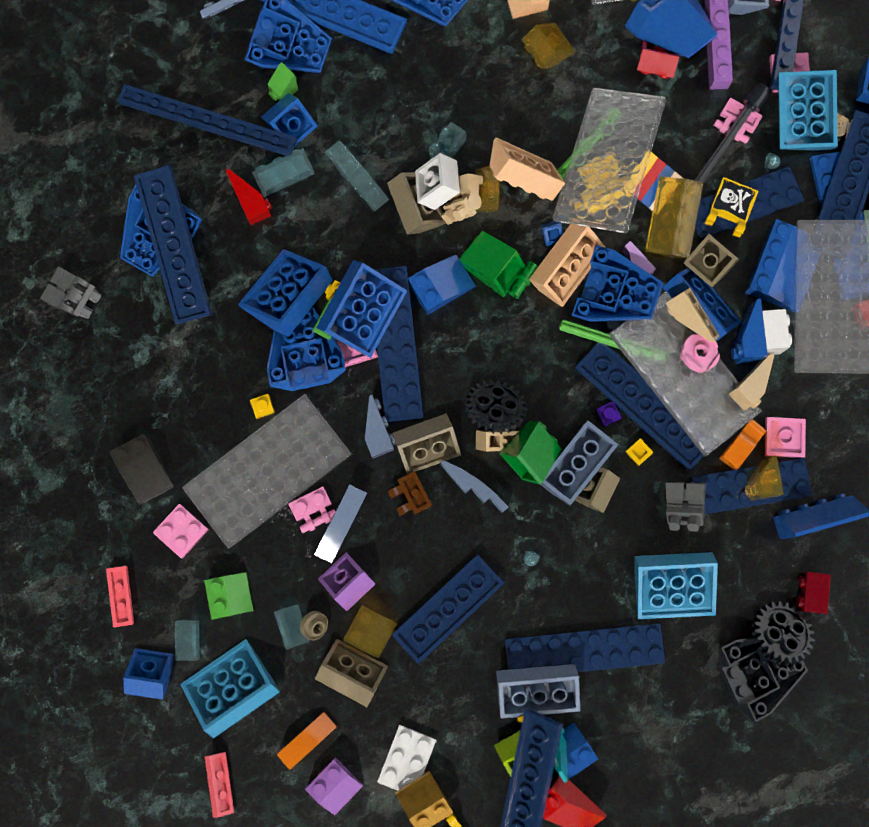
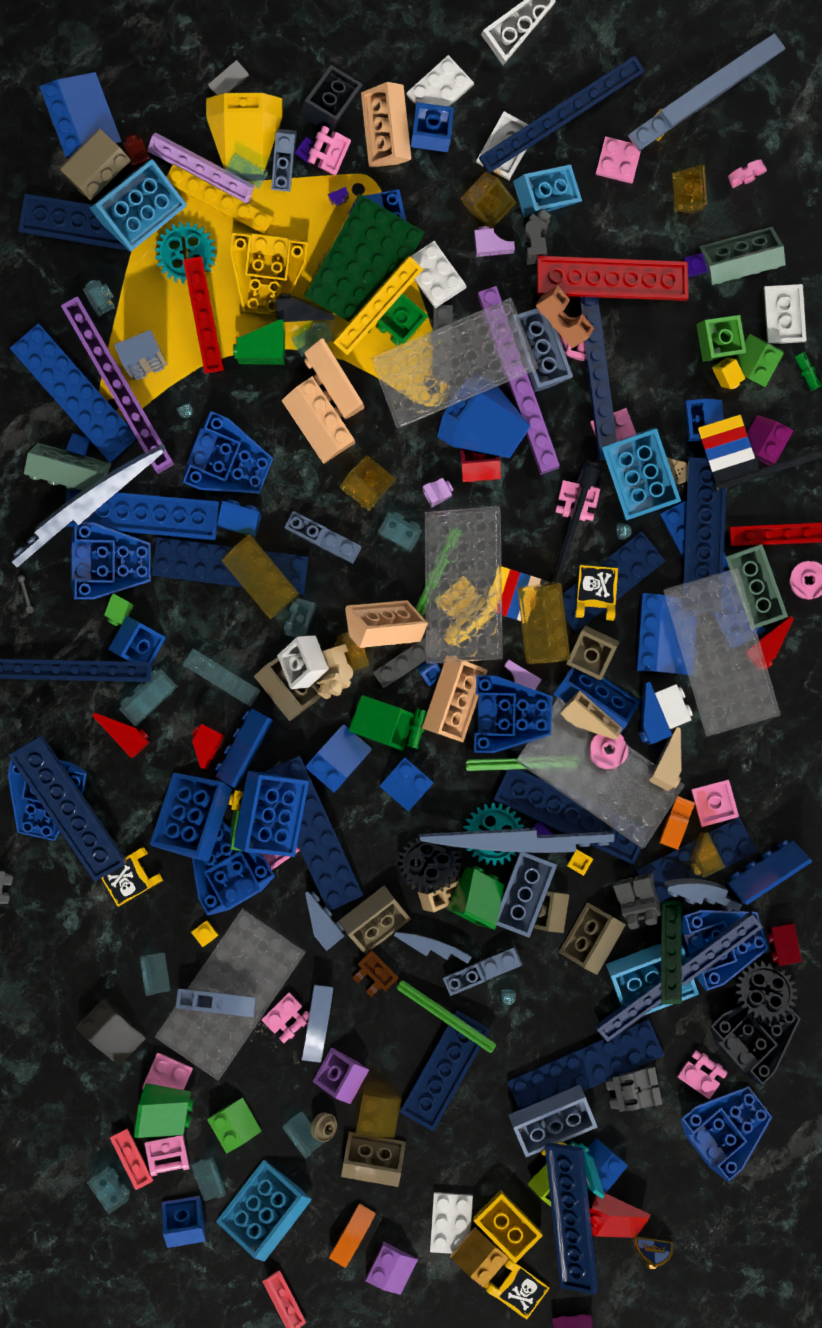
camera: 15 degrees left, 5 degrees up
(88, 618) = (109, 1189): none -> clear light blue brick
(155, 597) = (166, 1148): none -> bright pink plate
(164, 559) = (163, 1112): none -> green slope
(201, 62) = (29, 609): none -> dark grey hinge
(202, 428) = (155, 973): none -> clear light blue panel
(209, 332) = (129, 879): none -> flag
(250, 471) = (215, 1003): none -> sand blue slope
(323, 229) = (206, 744): none -> red slope
(357, 244) = (244, 748): none -> blue slope
(398, 80) = (204, 563): none -> dark blue plate
(420, 37) = (238, 518): none -> blue slope
(423, 94) = (260, 577): none -> clear yellow slope
(461, 781) = (507, 1226): none -> yellow brick
(466, 556) = (446, 1016): none -> bright green axle
(490, 80) = (323, 537): none -> sand blue slope
(498, 327) = (406, 784): none -> blue slope
(514, 524) = (482, 971): none -> sand blue slope
(527, 217) = (401, 664): none -> dark grey plate
(564, 97) = (400, 531): none -> clear light blue brick
(577, 387) = (502, 818): none -> teal gear
(589, 409) = (518, 840): none -> sand blue slope
(610, 71) = (437, 491): none -> lavender arch
(628, 685) = (635, 1089): none -> dark grey hips
(629, 527) = (592, 938): none -> dark tan slope
(690, 696) = (697, 1078): none -> bright pink plate
(704, 757) = (727, 1130): none -> blue wedge
(705, 562) = (671, 952): none -> dark green plate
(705, 588) = (691, 968): none -> dark blue plate
(749, 515) = (698, 890): none -> sand blue slope
(752, 572) = (702, 927): none -> blue wedge

